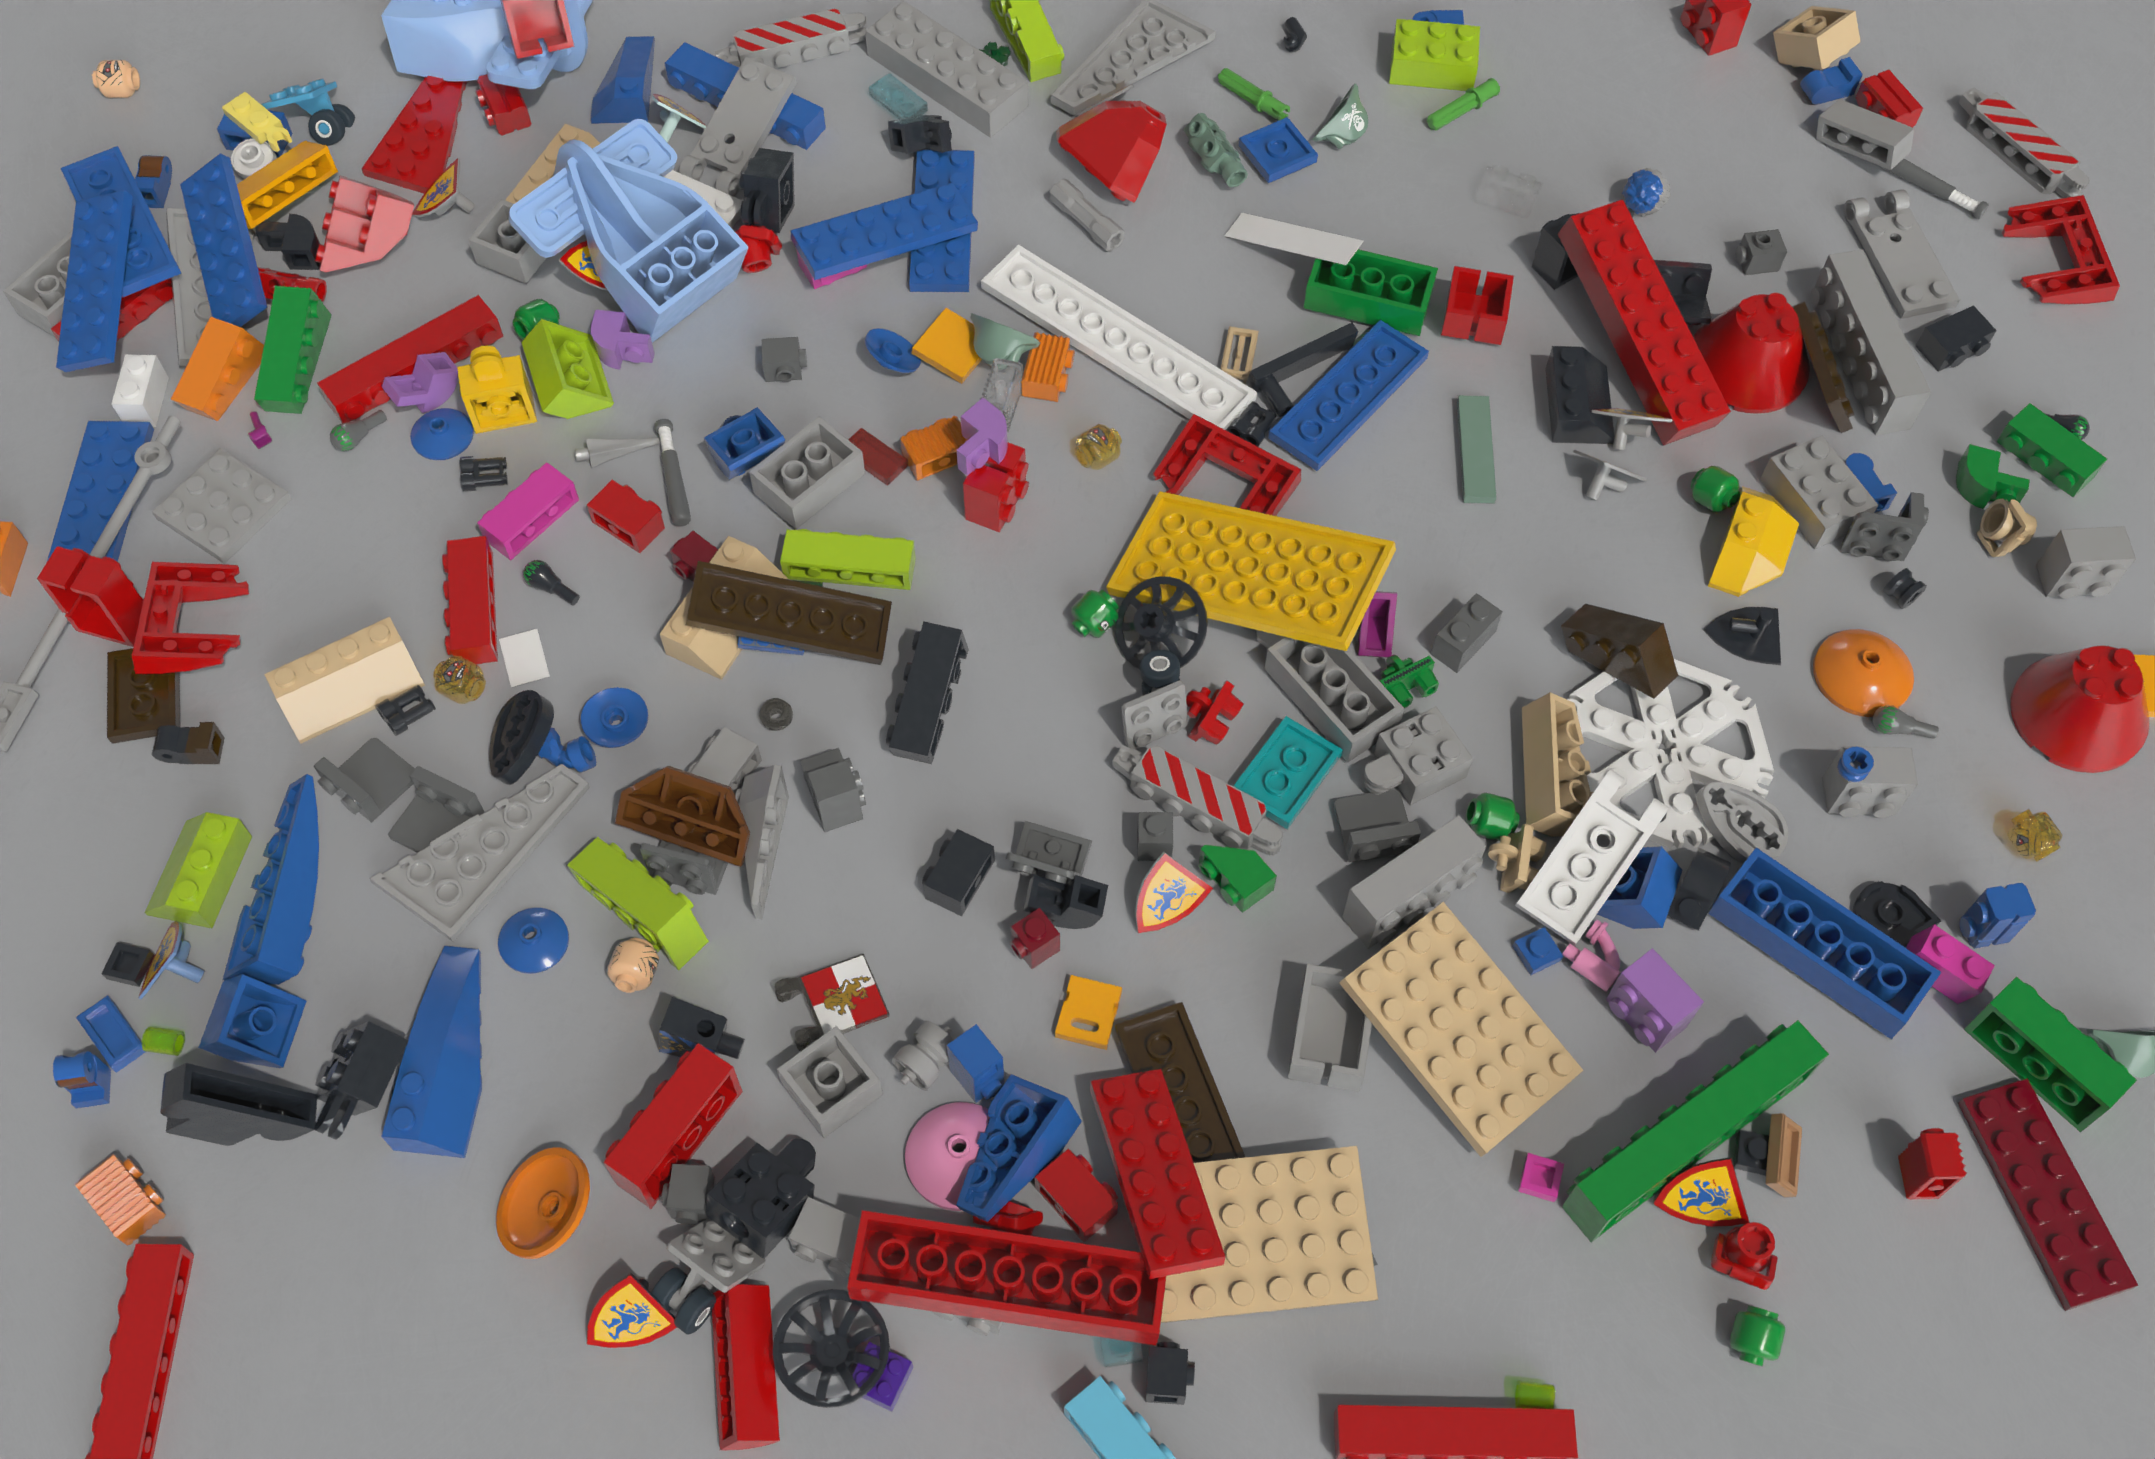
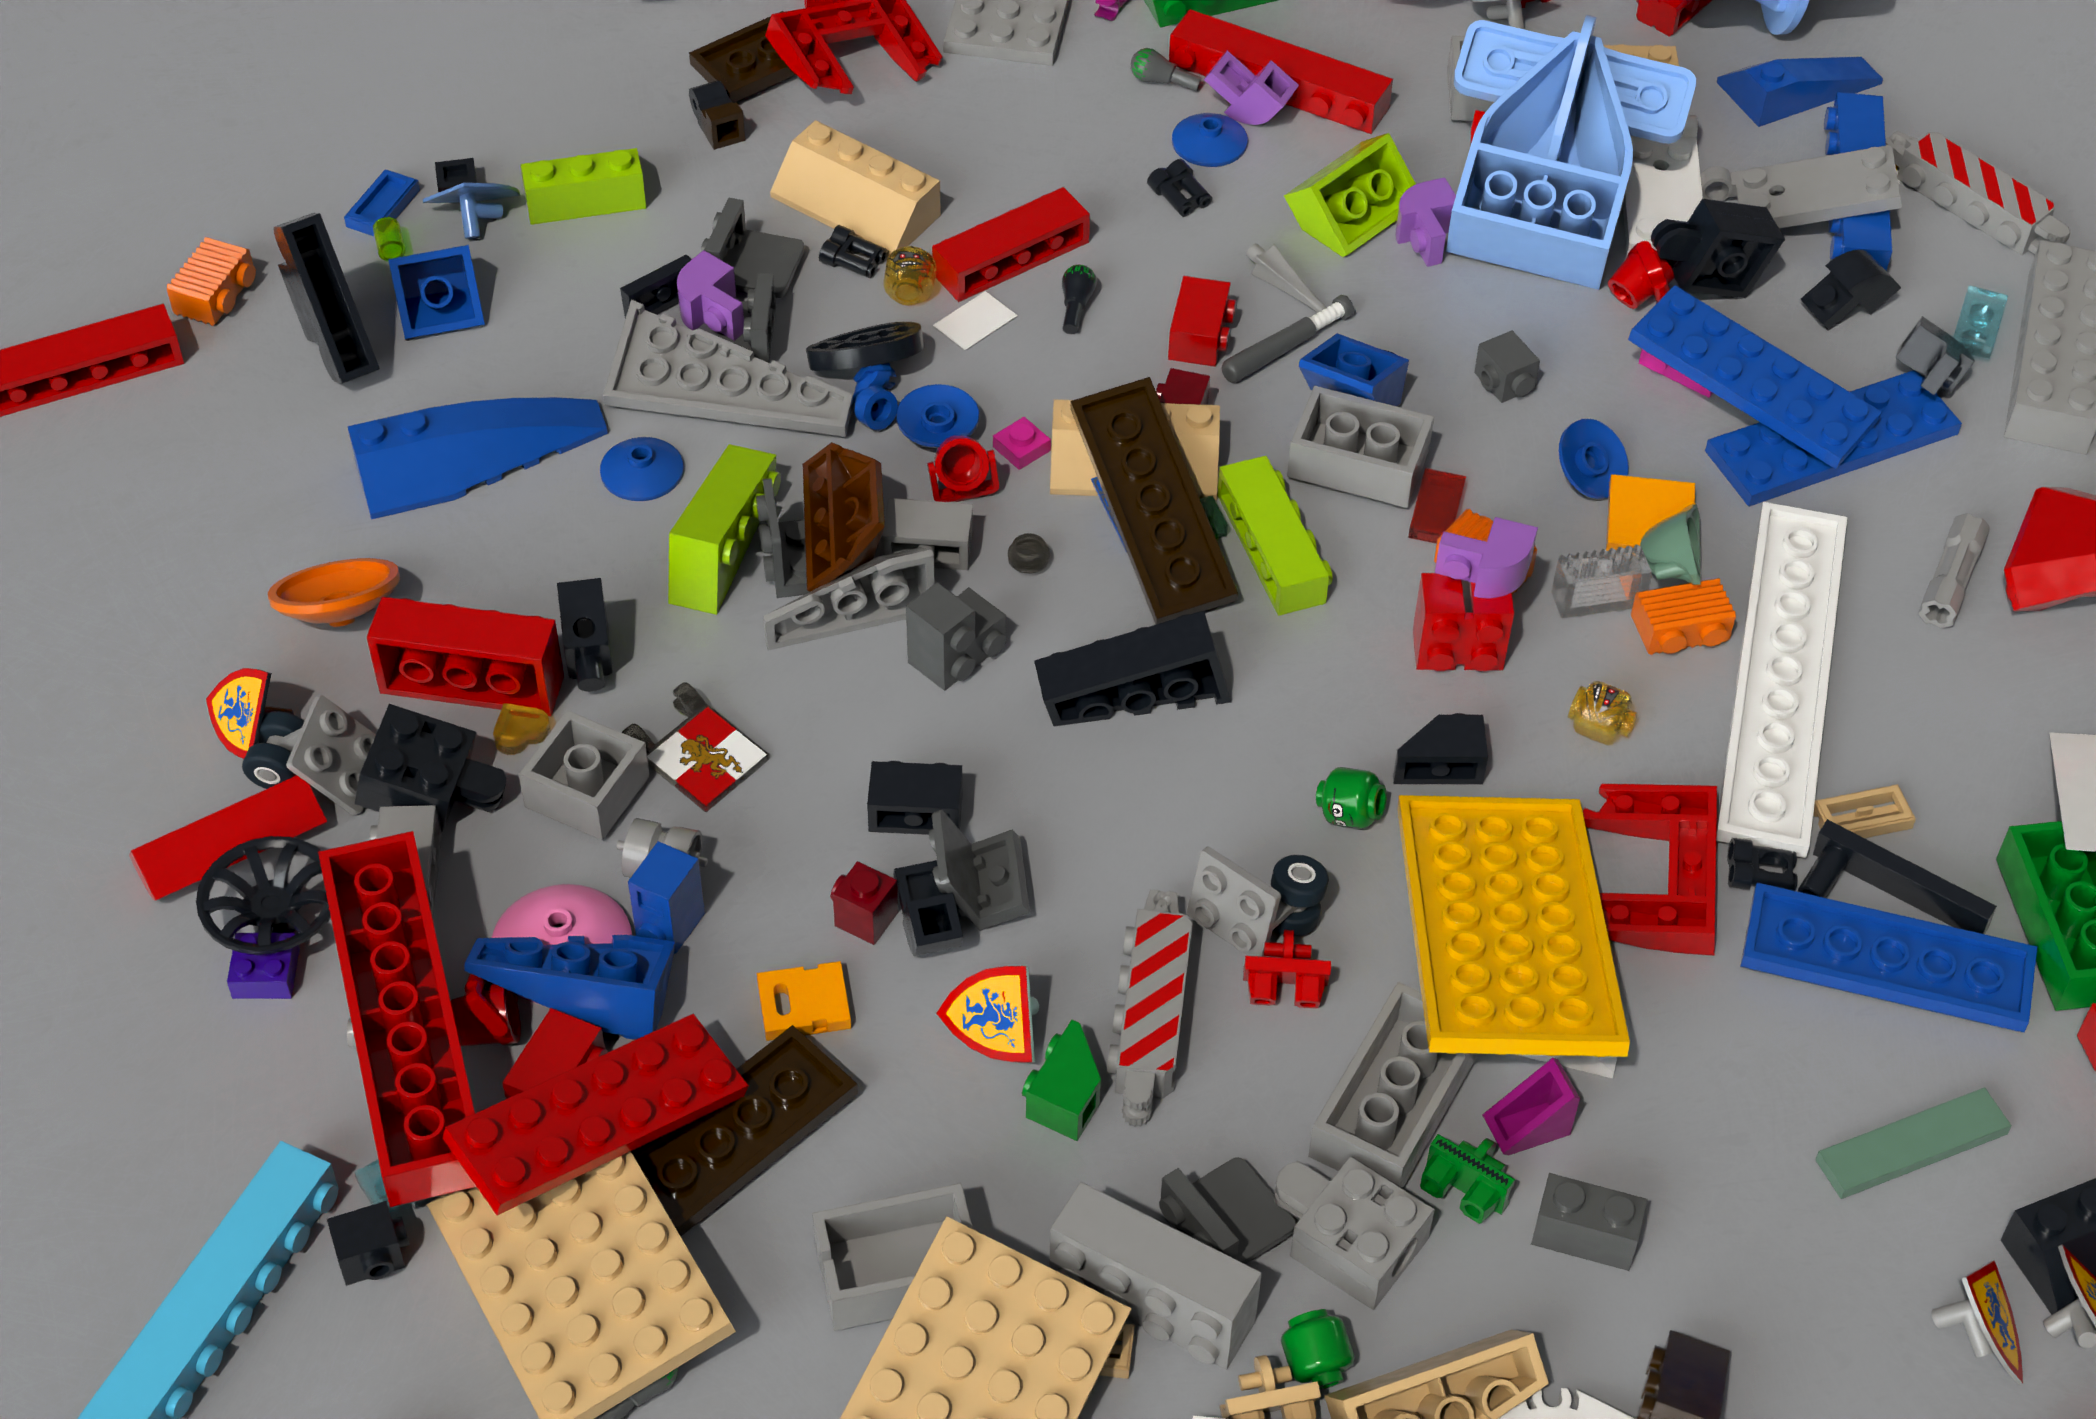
camera: 65 degrees right, 10 degrees down
(84, 1078) = (320, 191): blue leg -> none
(277, 924) = (581, 251): blue wedge -> none
(357, 1075) = (402, 378): black brick -> none
(362, 858) = (655, 290): none -> black plate
(400, 829) = (709, 295): none -> medium lavender brick
(496, 391) = (1274, 141): yellow brick -> none
(528, 510) = (1151, 240): dark pink brick -> none
(531, 313) = (1409, 139): green head -> none
(633, 965) = (643, 554): light nougat head -> none
(666, 676) = (1021, 443): none -> dark pink plate
(672, 118) = (1783, 131): light aqua shield -> none
(676, 720) = (962, 468): none -> red piece
(687, 1193) = (405, 693): dark grey brick -> none
(745, 1116) = (519, 727): none -> clear yellow tile
(834, 147) = (1852, 280): none -> black brick
(1084, 543) = (1444, 752): none -> black slope
(1154, 835) = (1070, 973): dark grey brick -> none
(1157, 622) = (1366, 850): black wheel -> none
(1288, 770) = (1248, 1087): teal plate -> none

